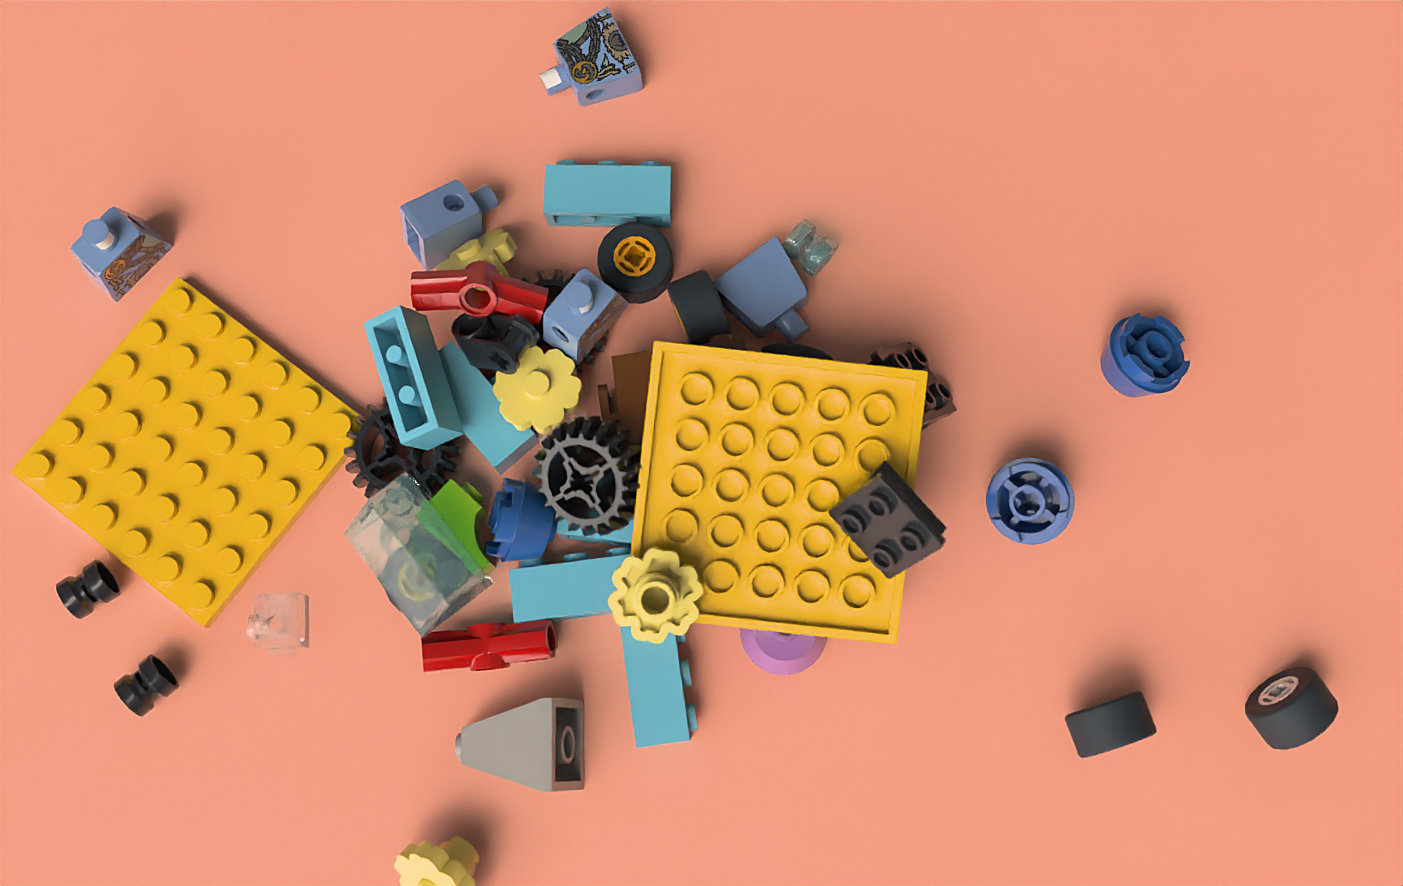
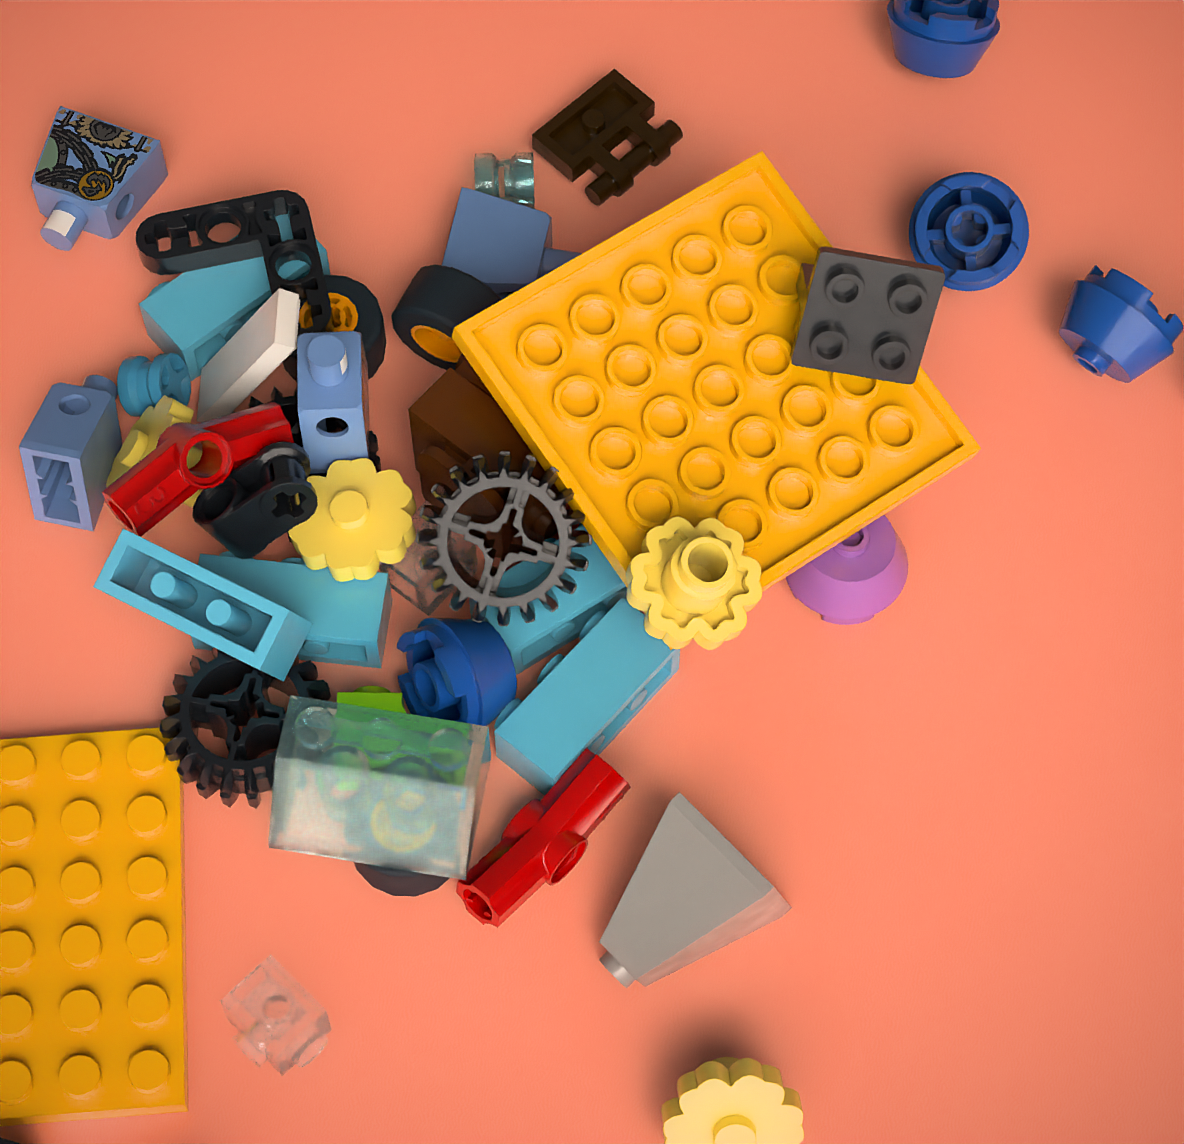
camera: 45 degrees left, 15 degrees down
(518, 216) = (145, 382): none -> dark azure wheel
(567, 248) = (249, 356): none -> white tile
(634, 177) = (256, 239): none -> black beam
(657, 690) = (760, 719): medium azure brick -> none
(892, 253) = (595, 125): none -> dark brown plate
(1058, 629) = (1116, 326): none -> blue cone

